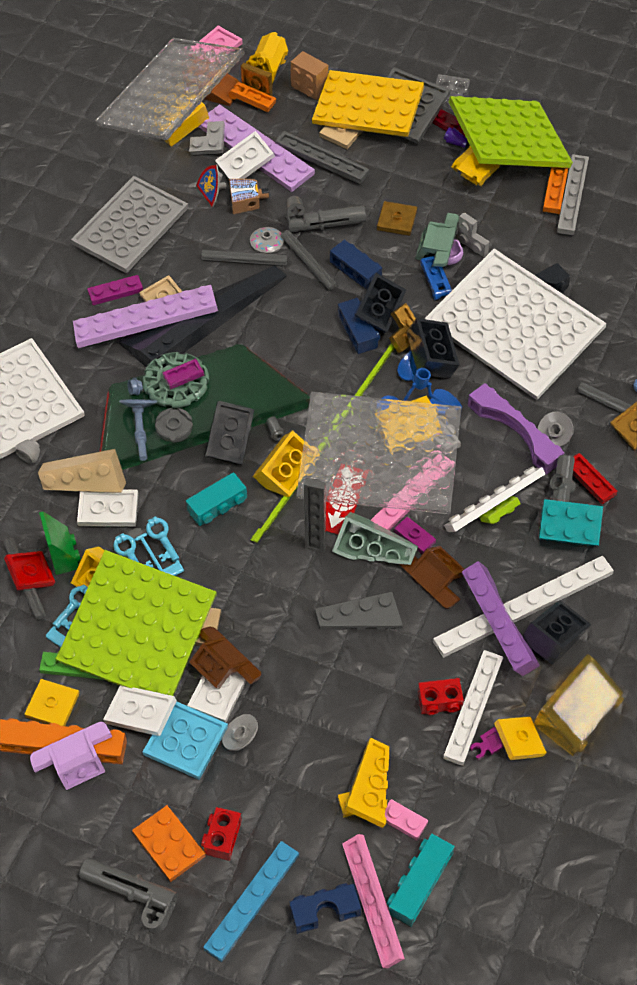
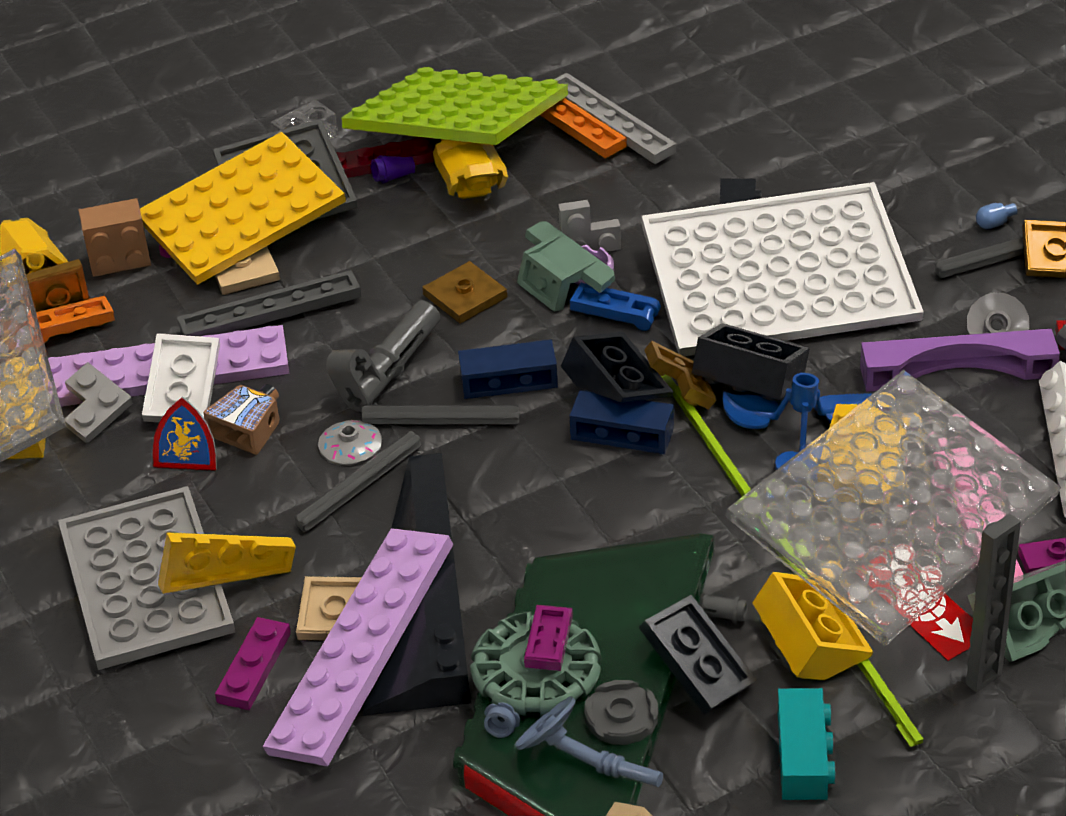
camera: 50 degrees left, 15 degrees down
(145, 240) = (214, 559): none -> yellow wing

